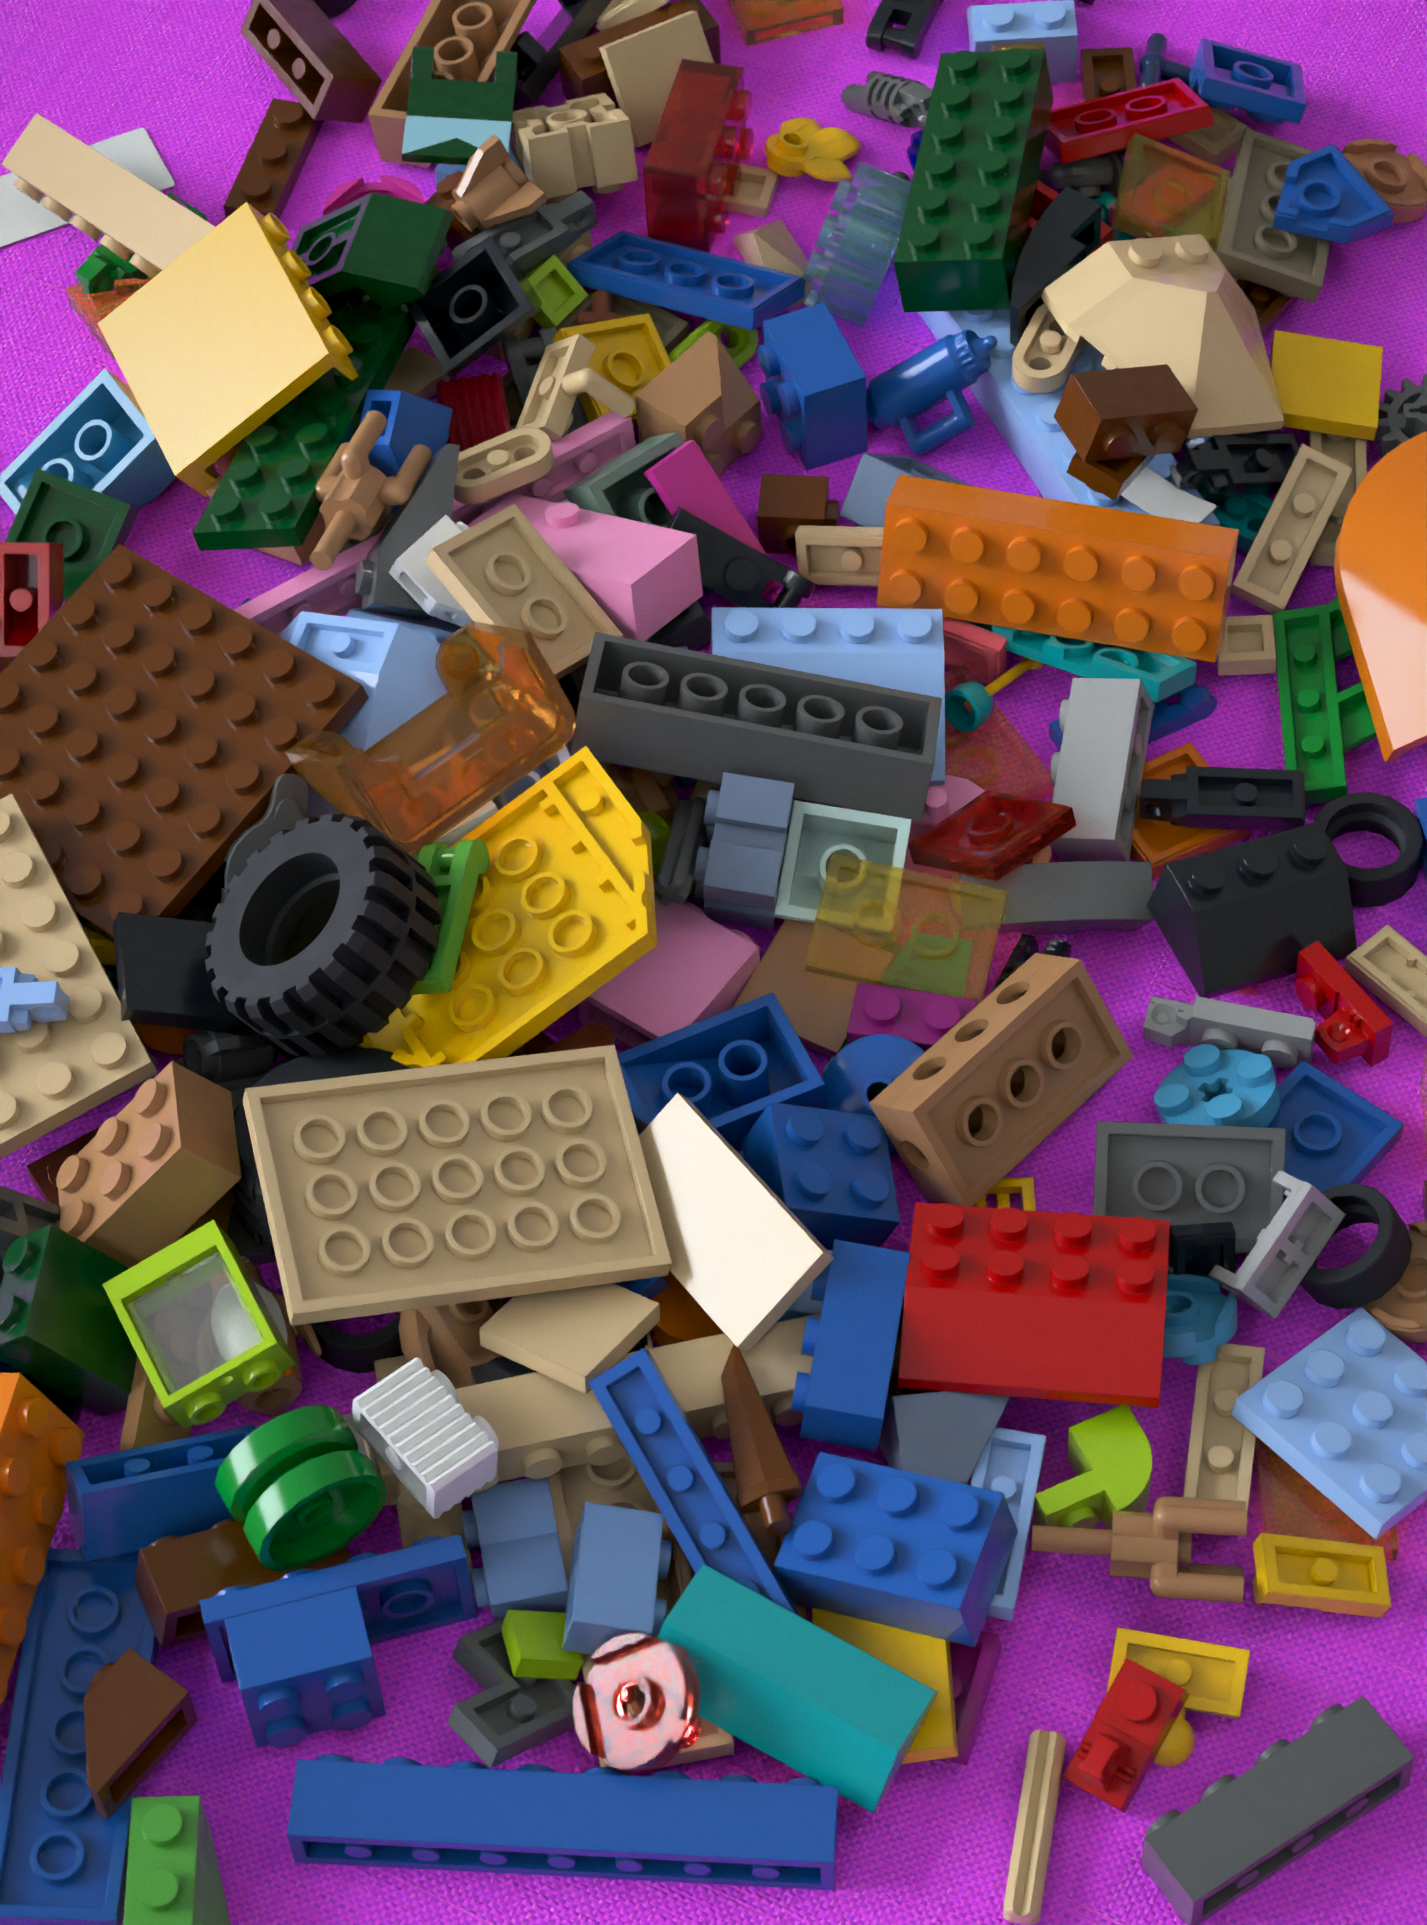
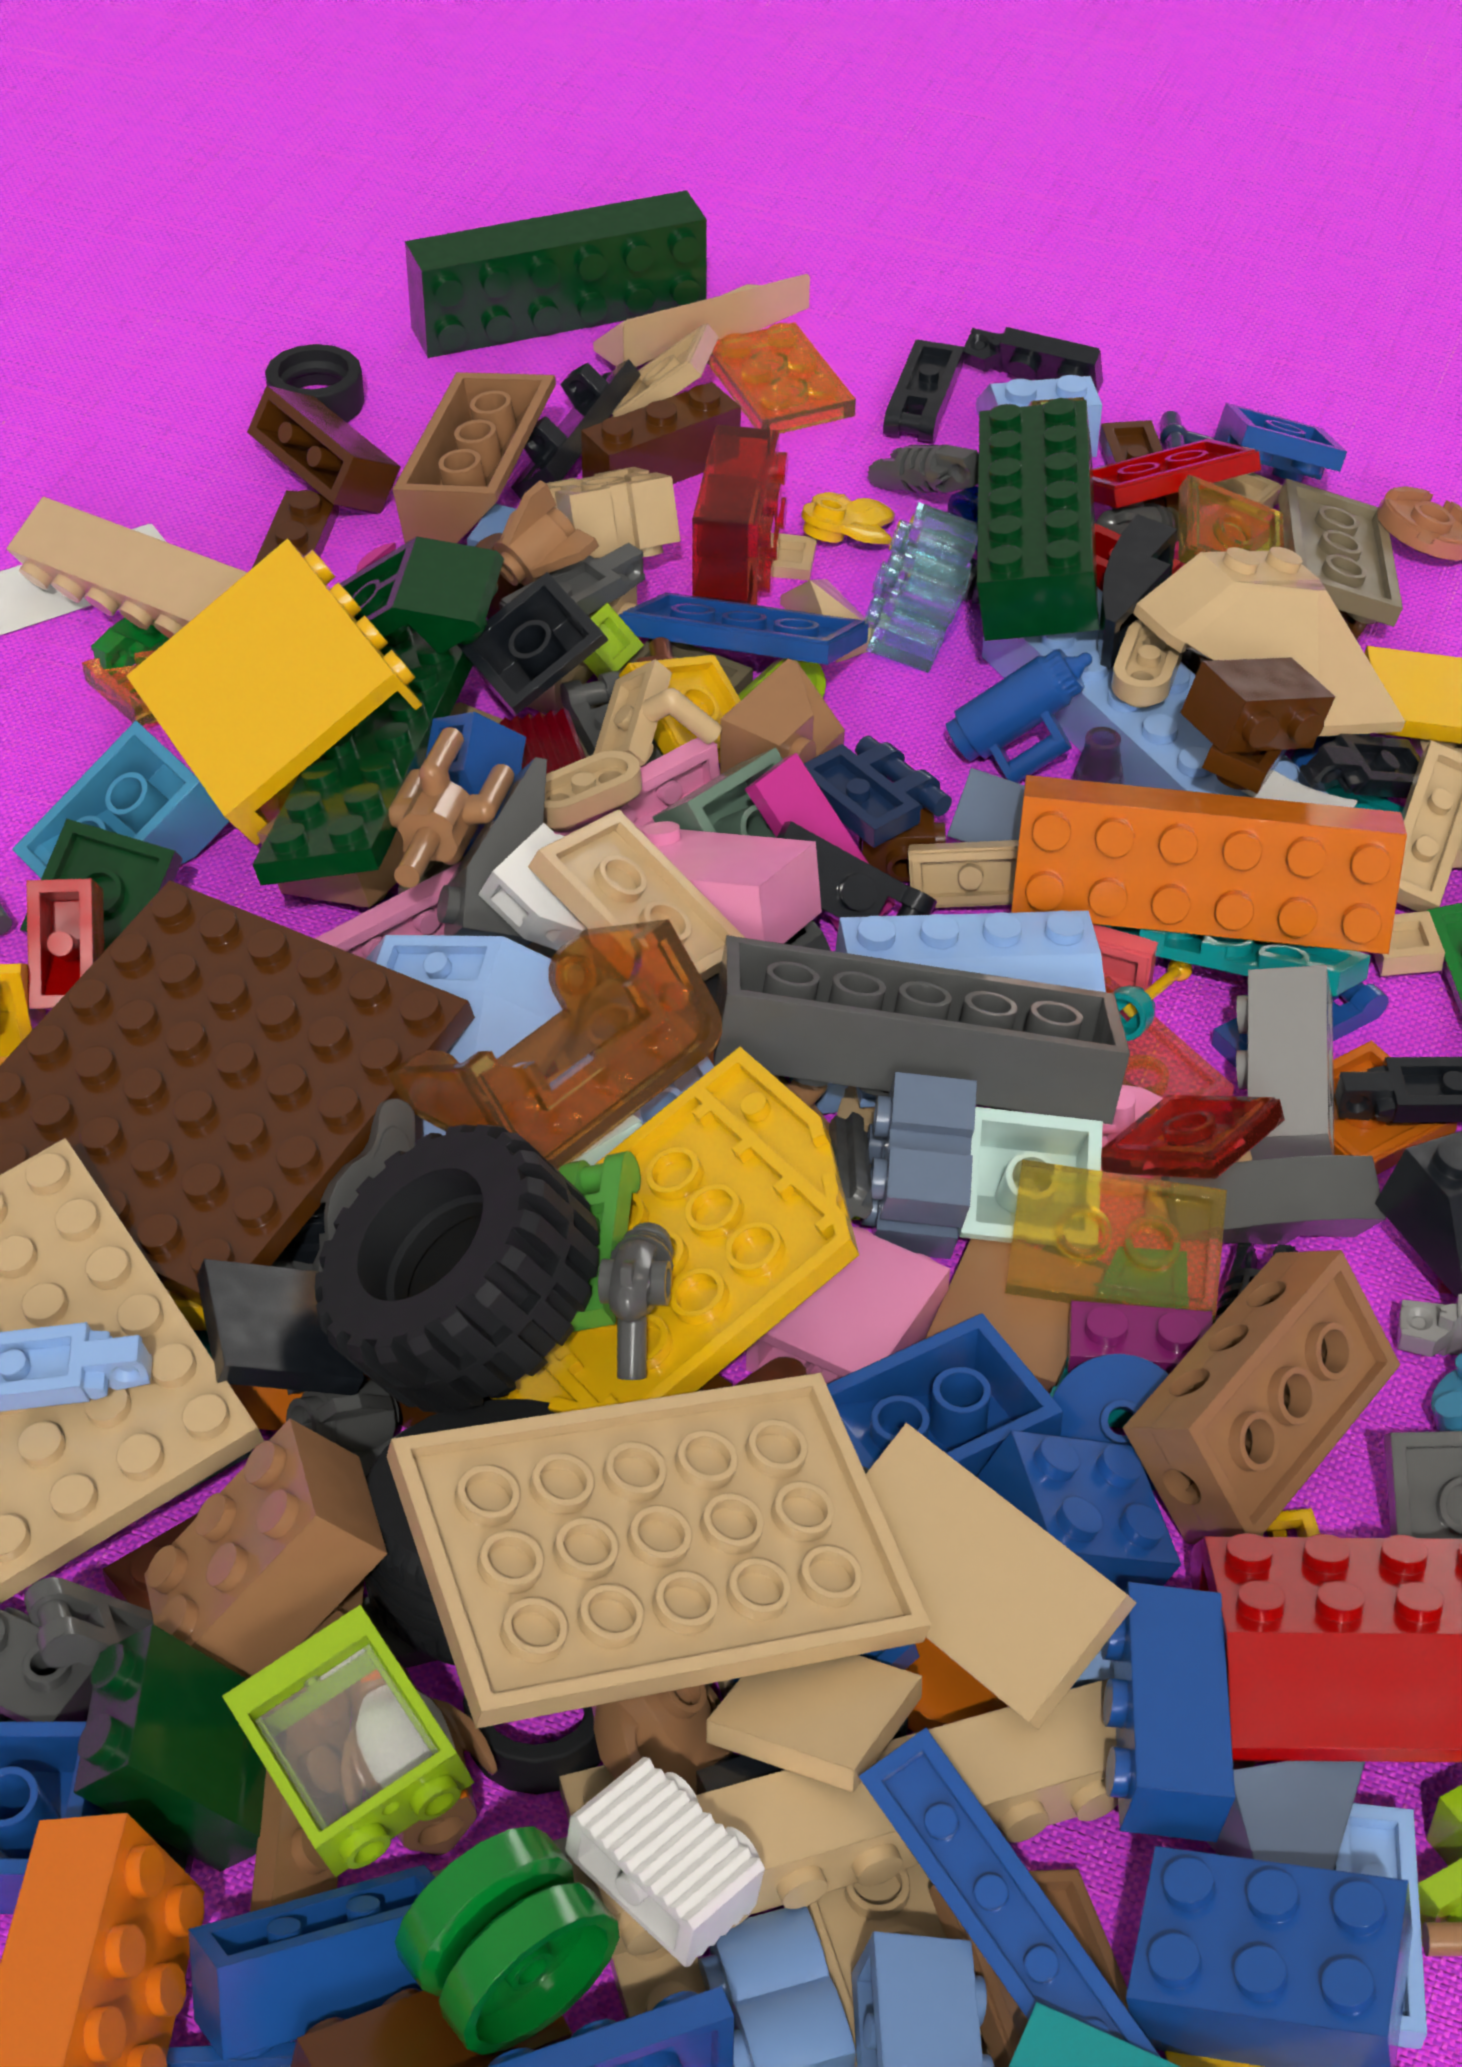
camera: 10 degrees left, 10 degrees down
(456, 116) = (485, 485): dark green flag -> none
(464, 962) = (632, 1285): none -> dark grey piece
(646, 65) = (679, 442): tan tile -> none
(760, 479) = (876, 789): none -> dark blue plate
(760, 1462) = (1084, 1865): reddish brown bar -> none
(813, 386) = (902, 699): blue brick -> none
(995, 455) = (1100, 757): none -> clear purple cone
(1329, 199) = (1392, 531): blue plate -> none

